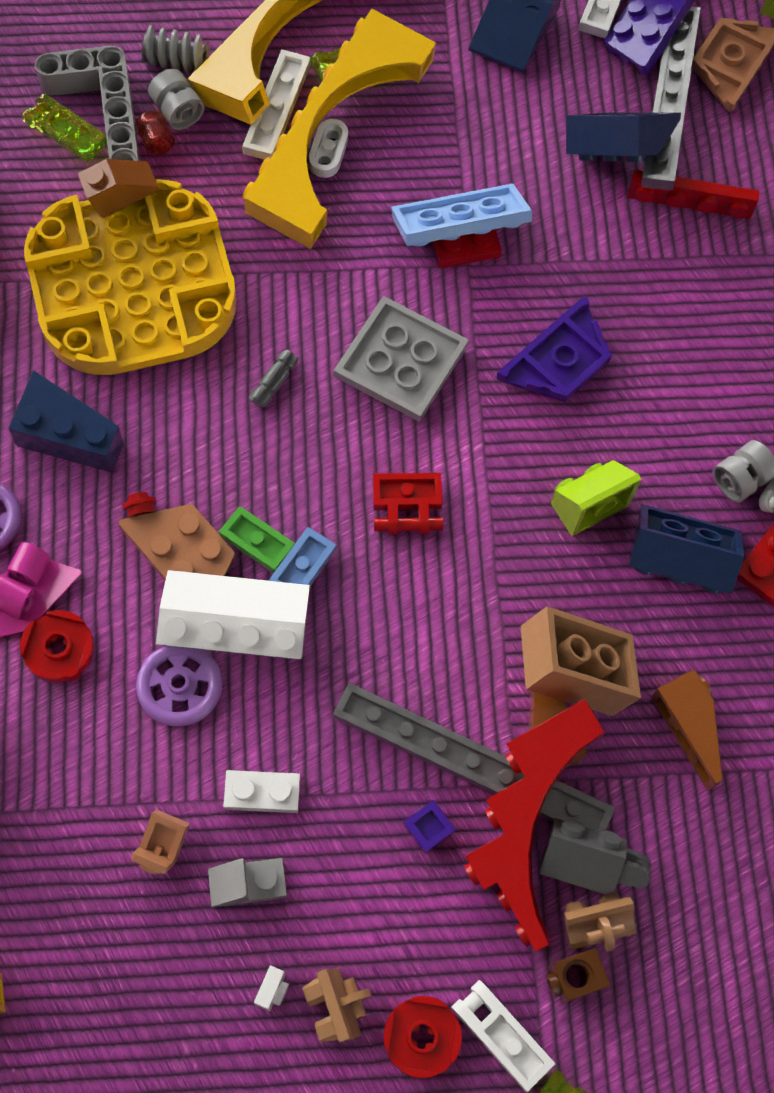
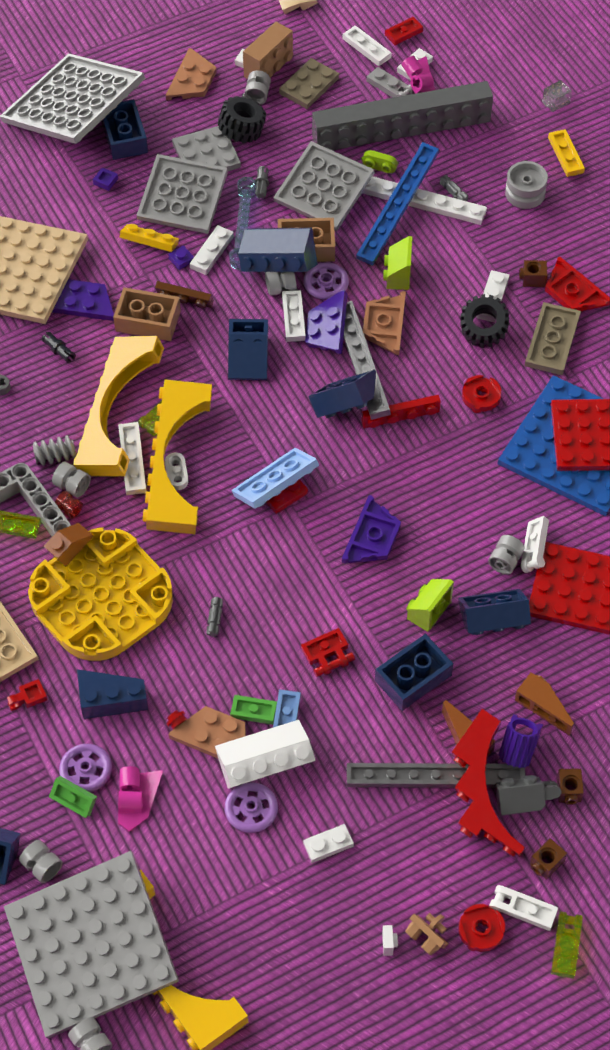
camera: 20 degrees left, 10 degrees down
(68, 663) = (171, 829): red plate -> none
(160, 843) = (288, 893): nougat bracket -> none
(246, 882) = (345, 893): light grey slope -> none
(401, 358) = (282, 574): light grey plate -> none
(429, 827) = (429, 819): dark purple plate -> none
(514, 585) = (413, 672): none -> dark blue brick
(579, 661) = (466, 692): medium nougat brick -> none
(600, 922) = (545, 826): medium nougat hips -> none
(611, 783) = (519, 748): none -> dark purple piece
(683, 867) = (574, 778): none -> reddish brown brick

